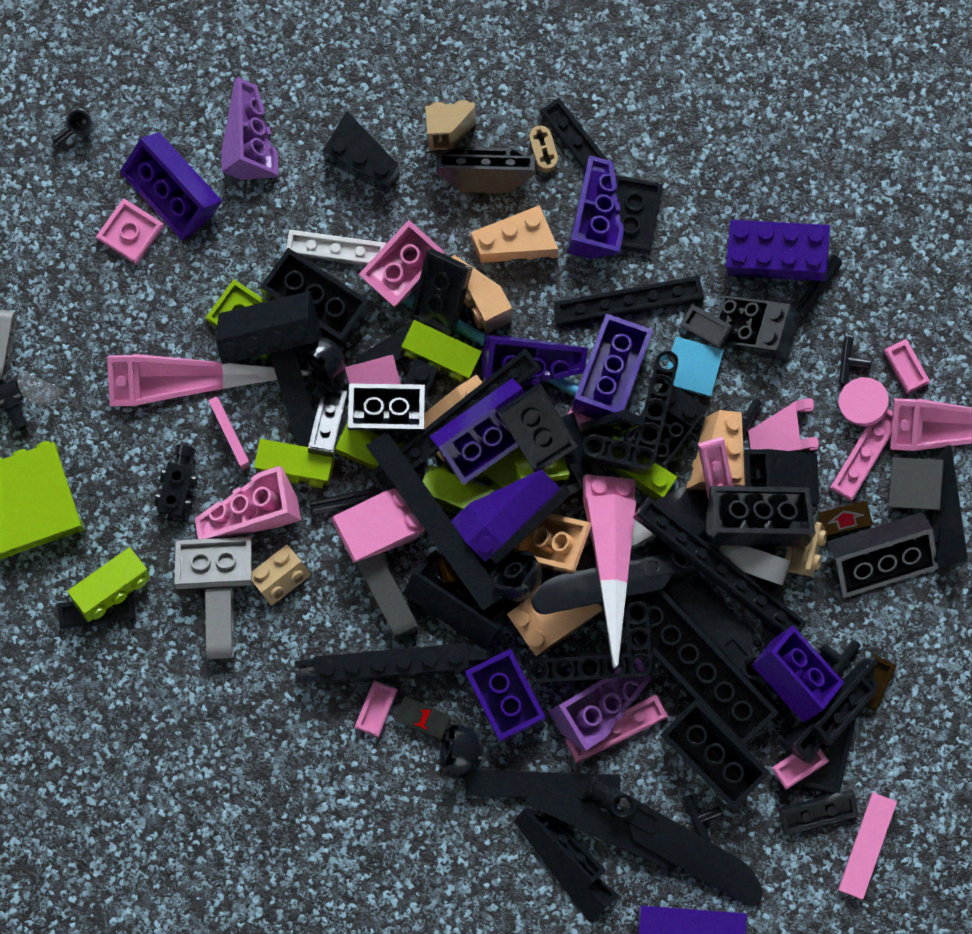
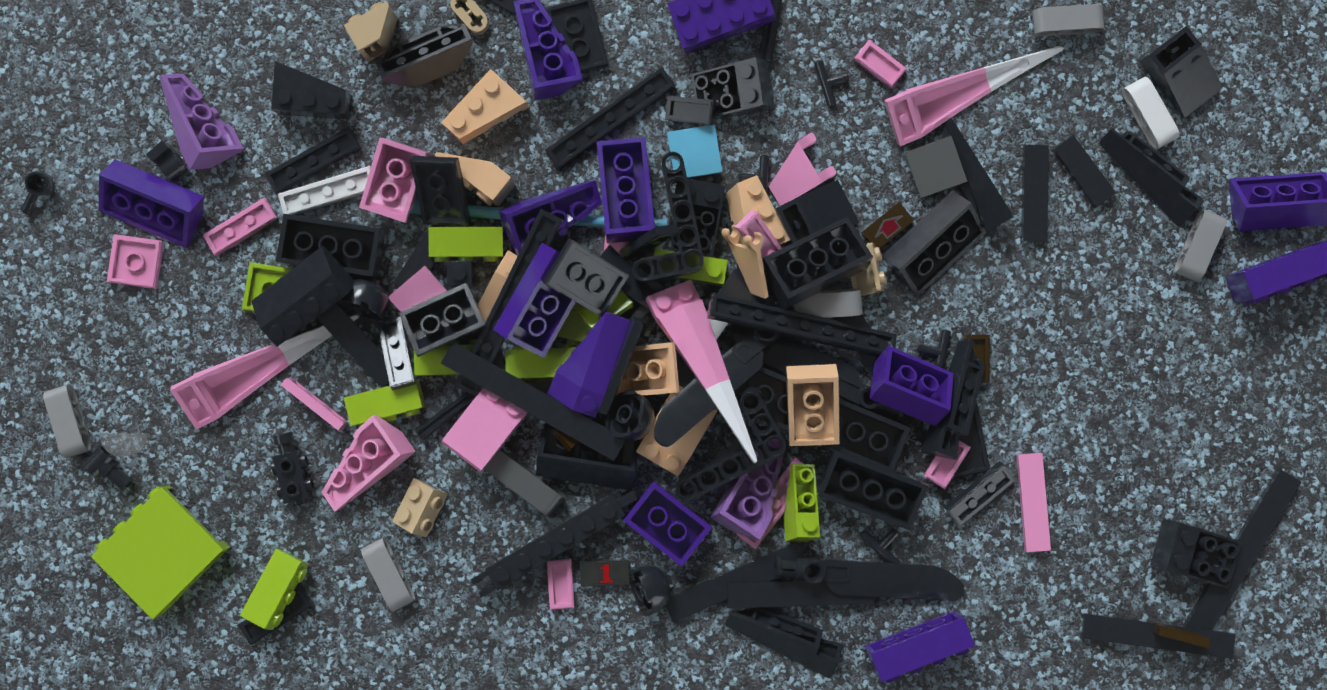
camera: 30 degrees left, 10 degrees up
(205, 155) = (168, 160): none -> black leg
(213, 562) = (357, 526): light grey plate -> none
(240, 244) = (240, 226): none -> bright pink tile
(336, 215) = (313, 161): none -> black tile
(640, 739) = (801, 505): none -> lime slope
(694, 645) = (813, 404): none -> light nougat slope
(696, 483) = (748, 260): none -> light nougat flag
(862, 458) = (878, 160): bright pink tile -> none
(863, 401) = (857, 114): bright pink tile -> none

